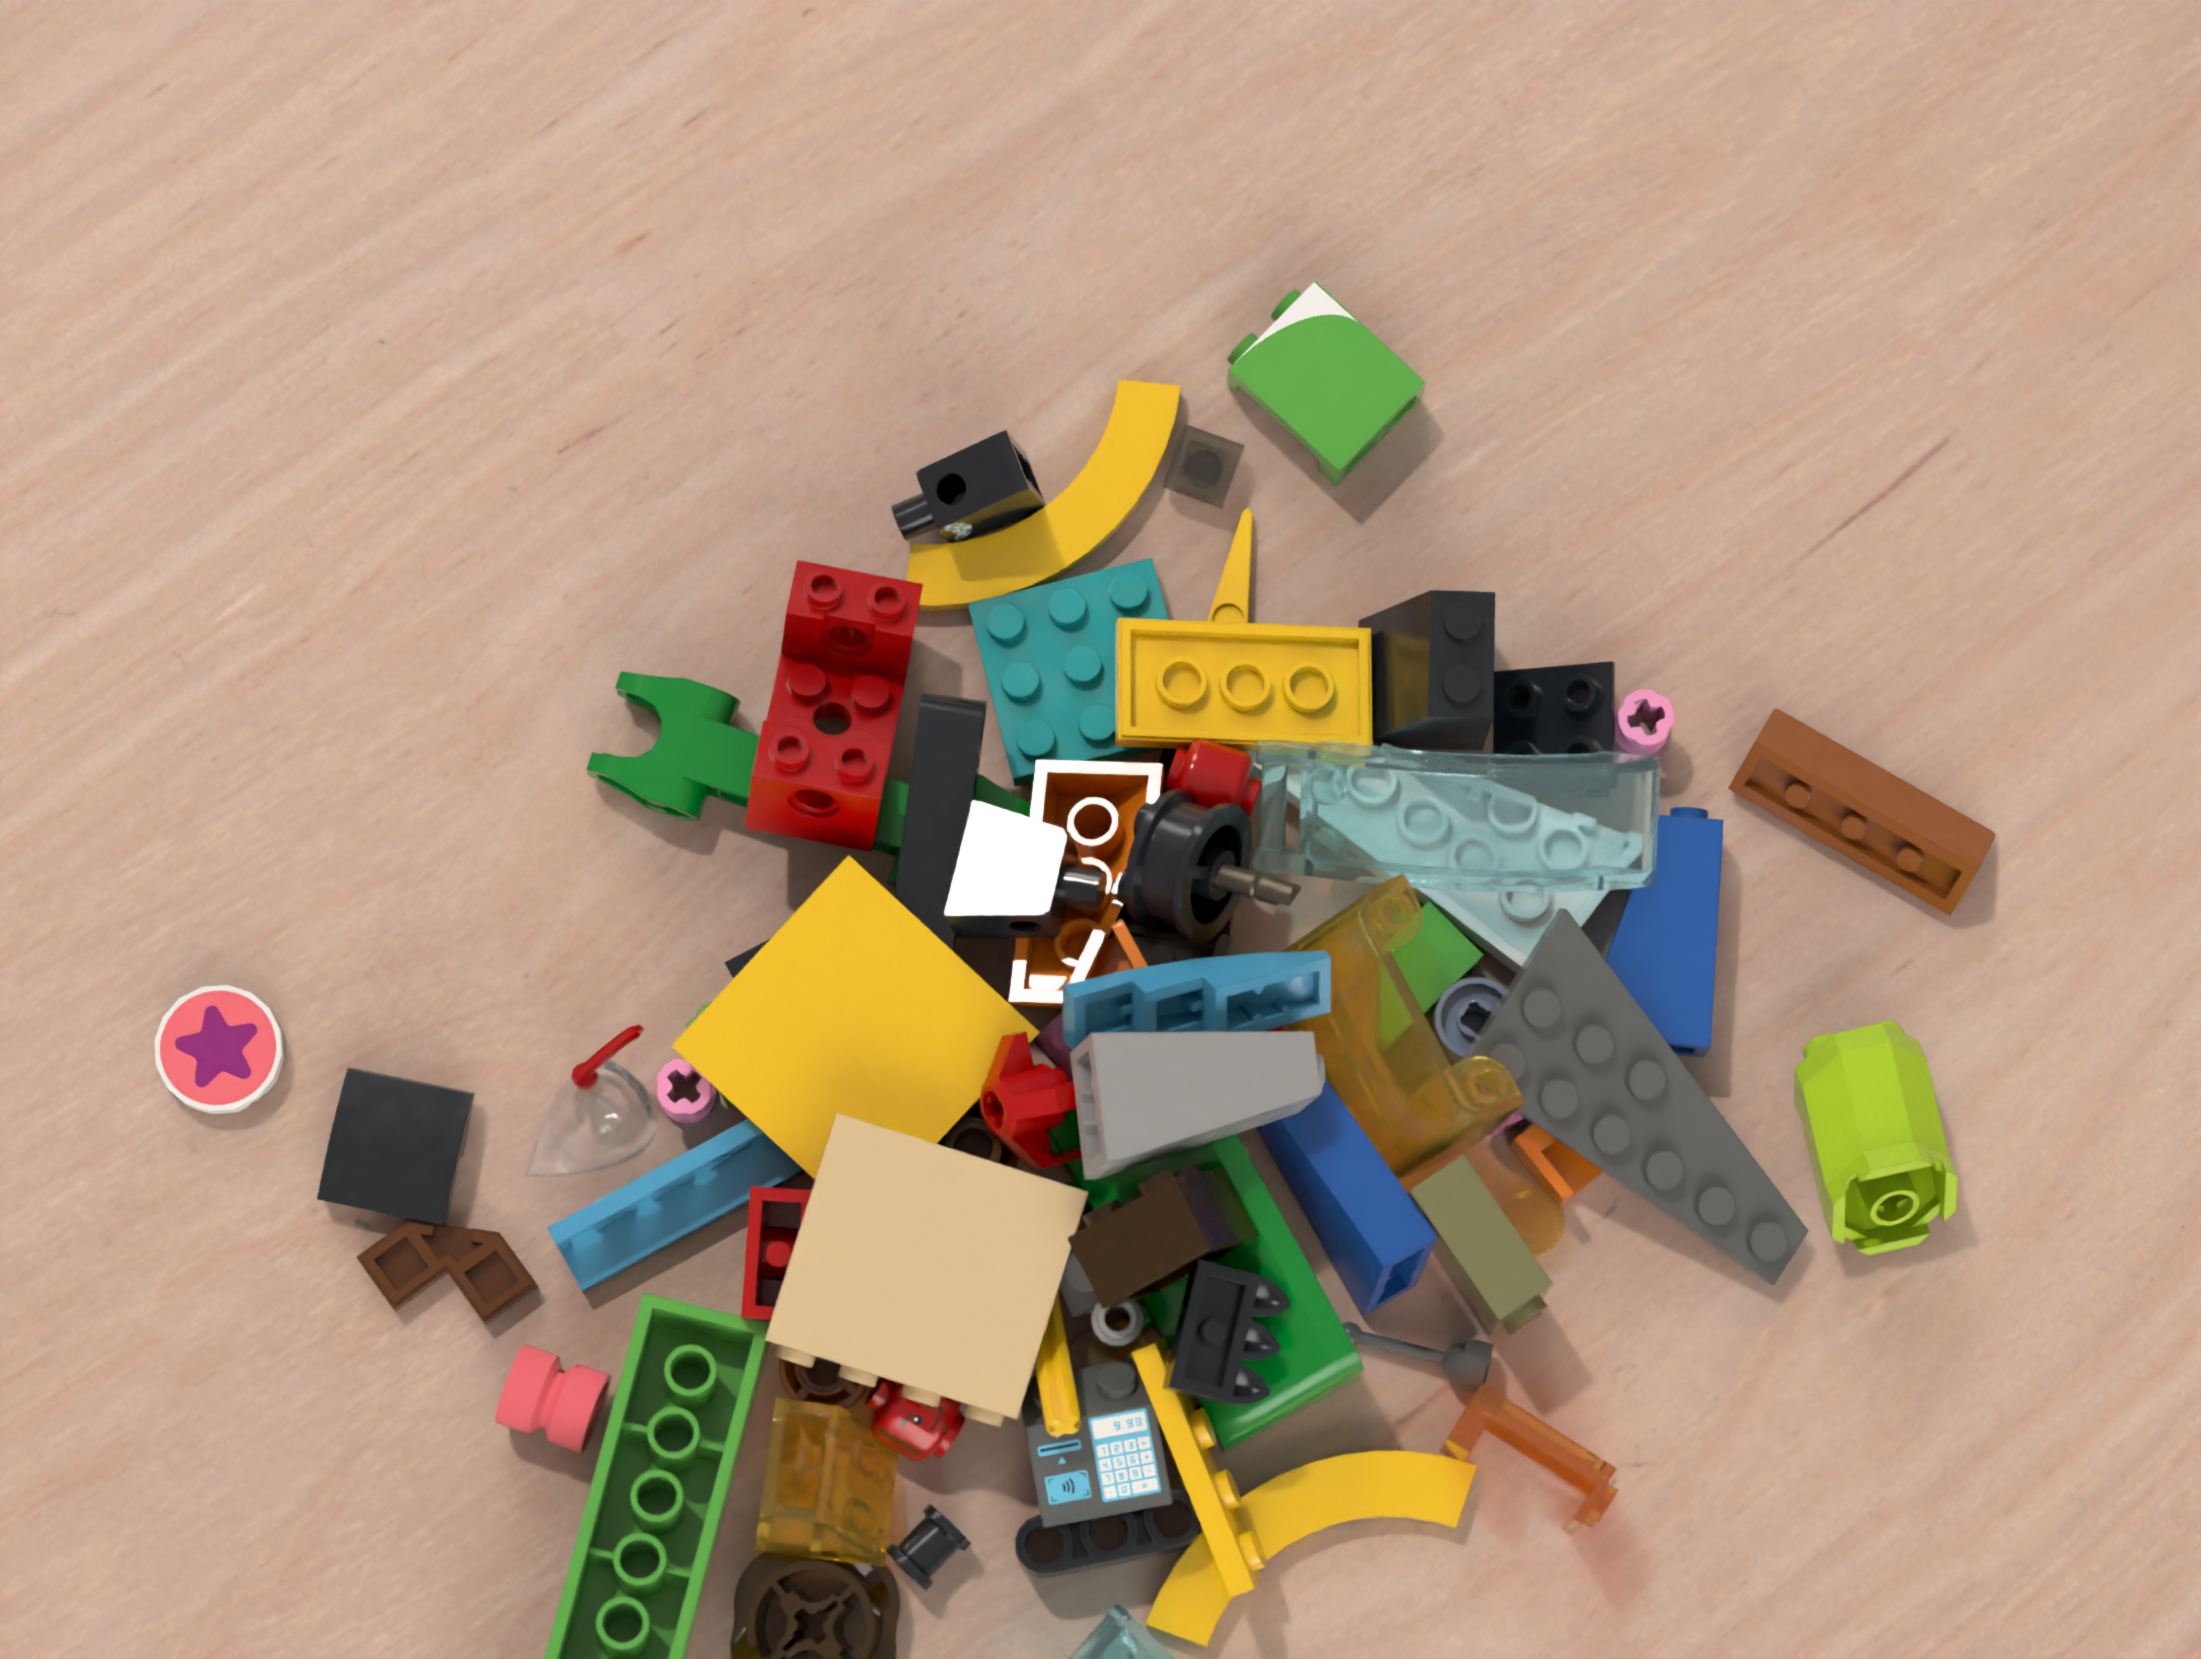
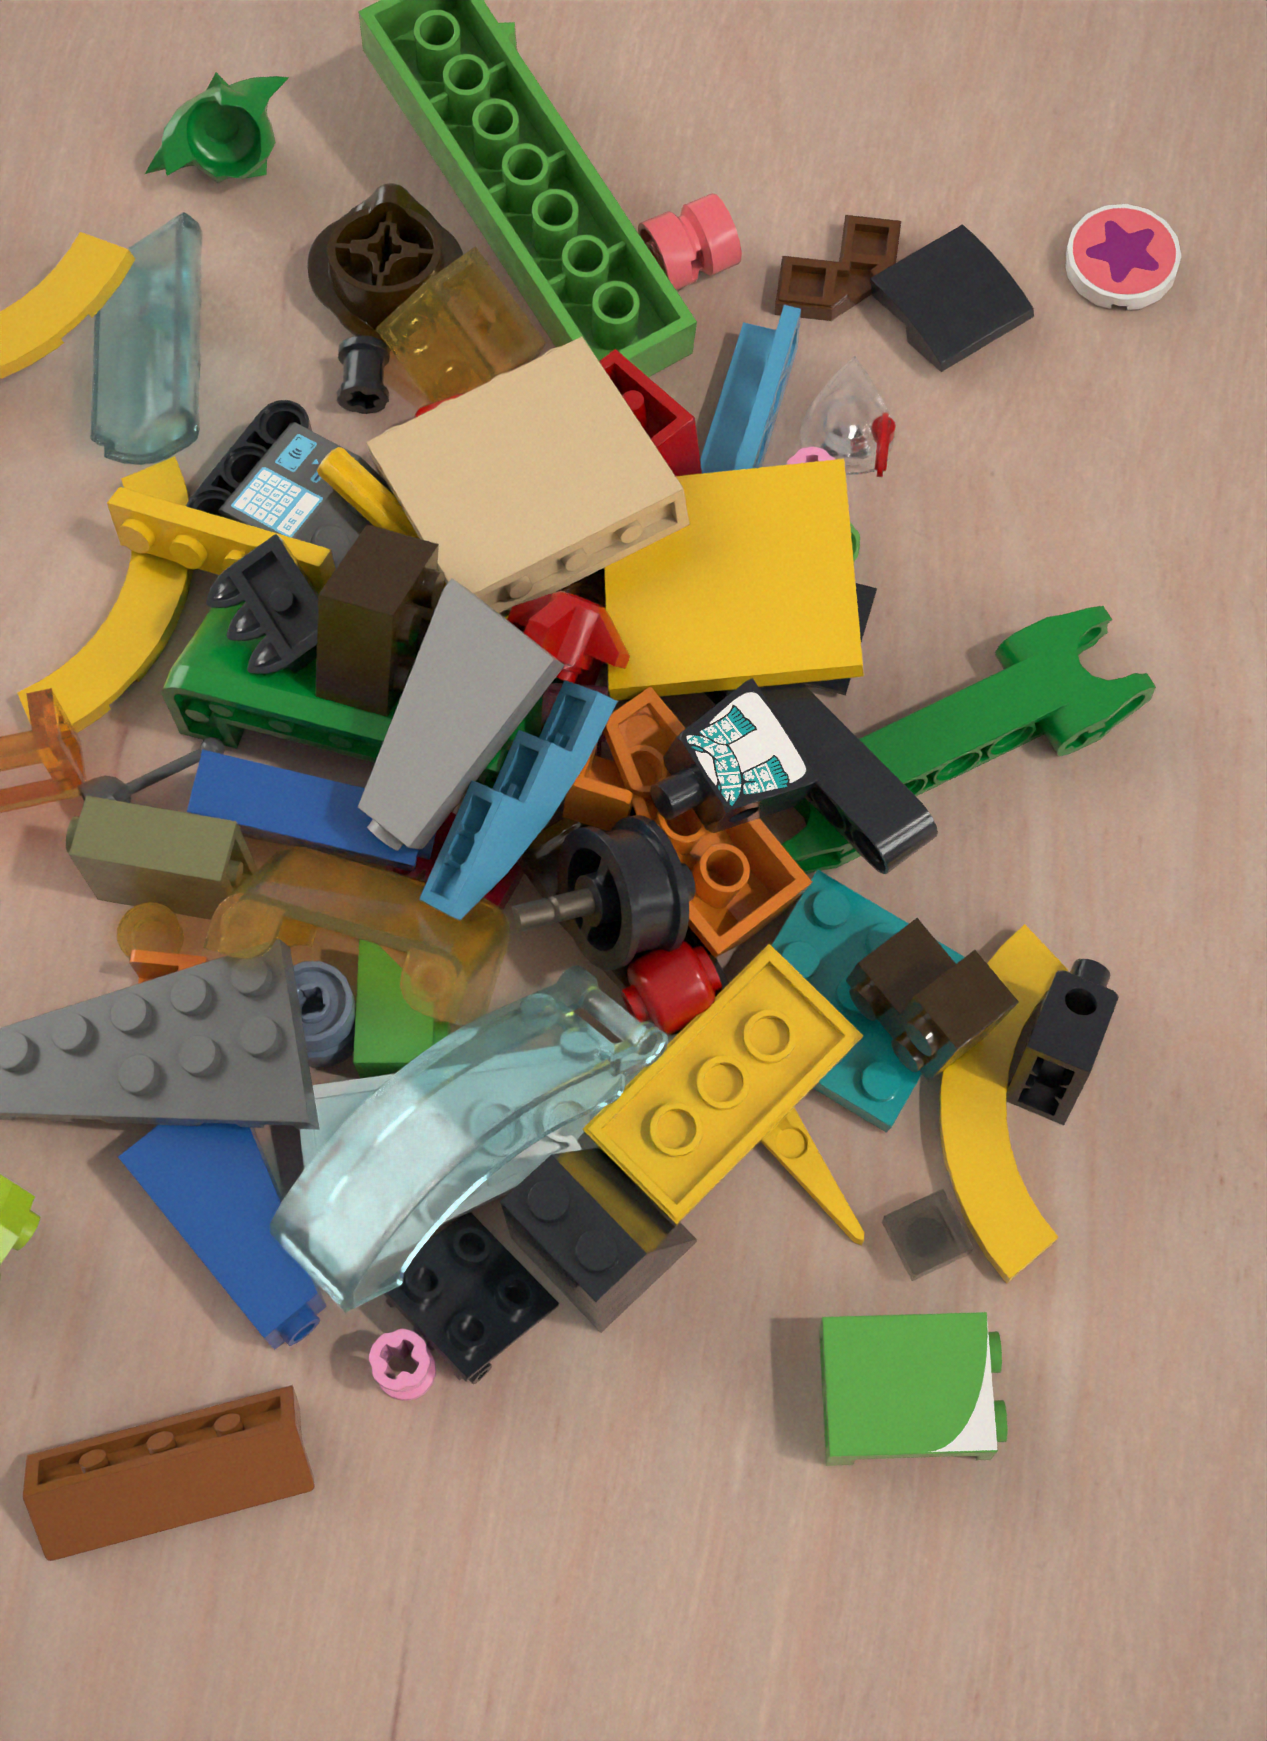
camera: 140 degrees right, 10 degrees down
(841, 658) = (1025, 833): red plate -> none
(1051, 578) = (927, 999): none -> dark brown brick

